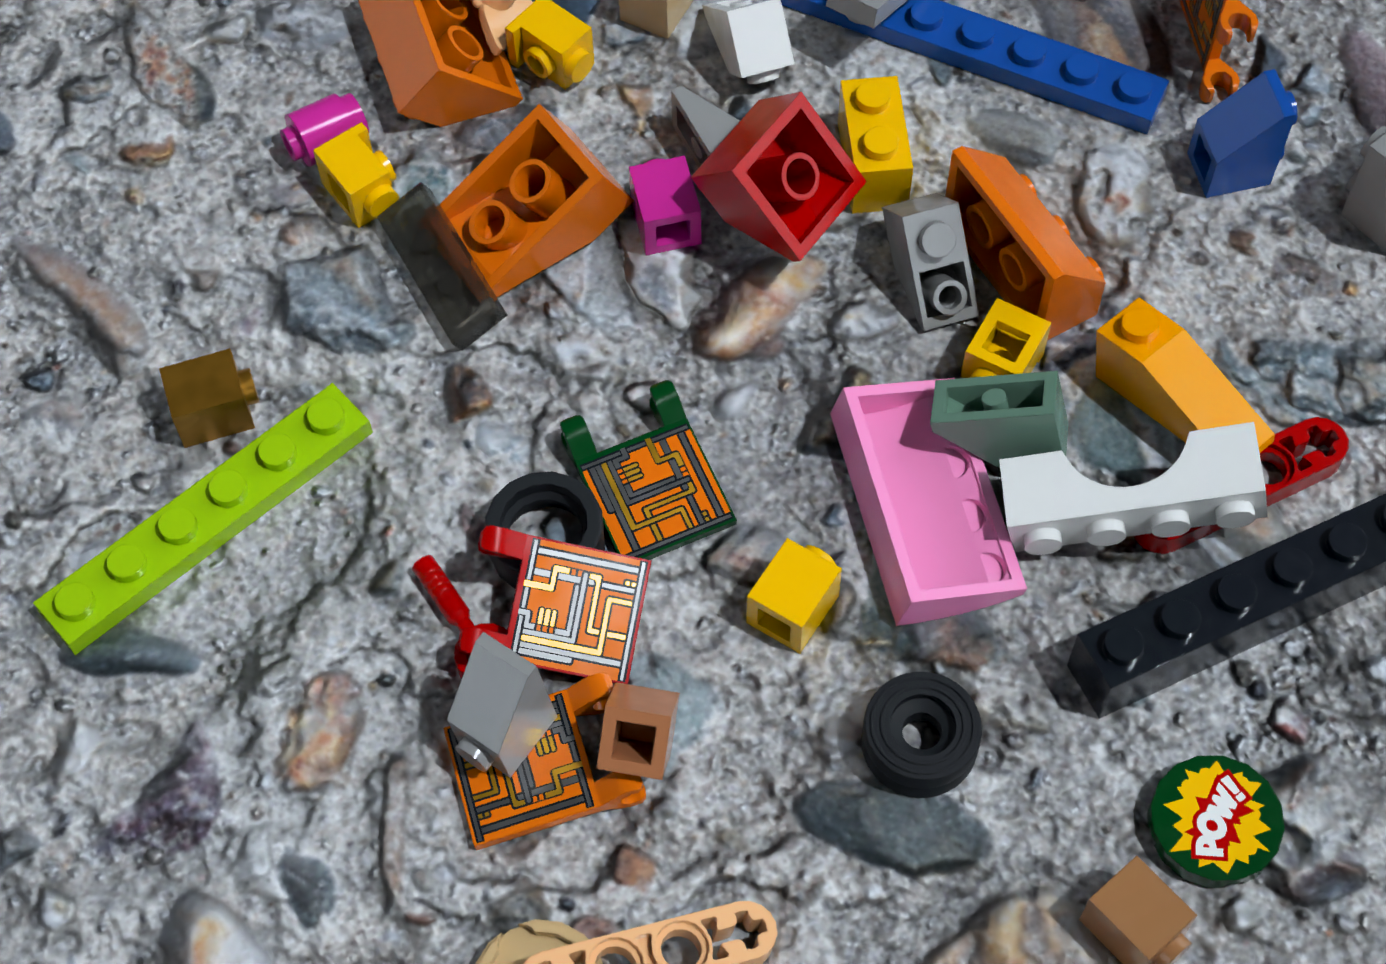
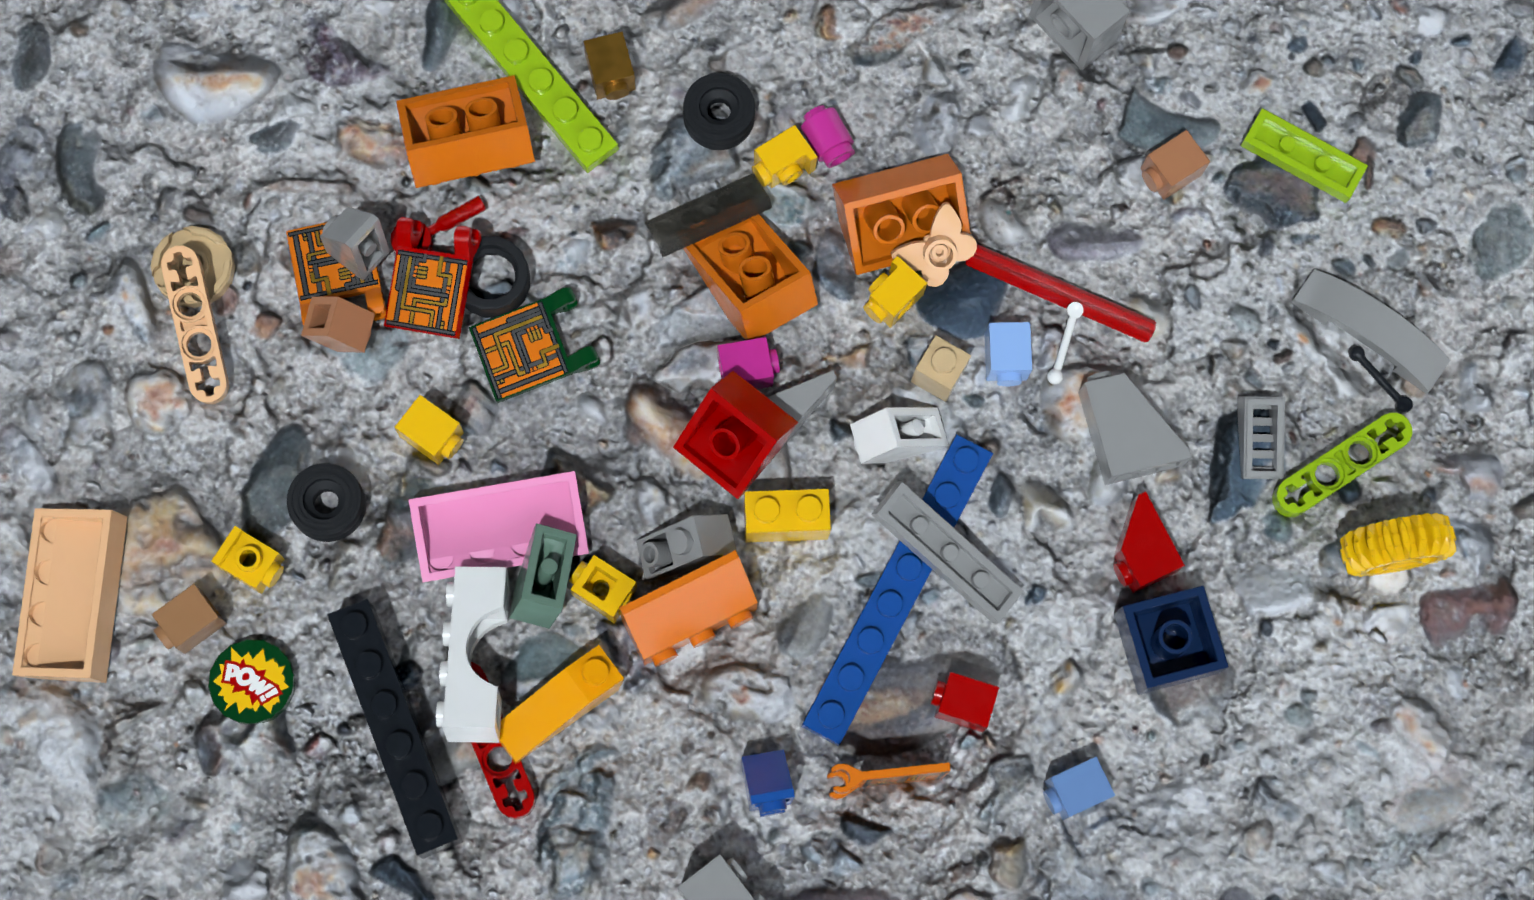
camera: 85 degrees right, 15 degrees up
(276, 231) = (719, 89): none -> black tyre
(310, 580) = (465, 131): none -> orange slope
(1025, 856) = (234, 551): none -> yellow brick

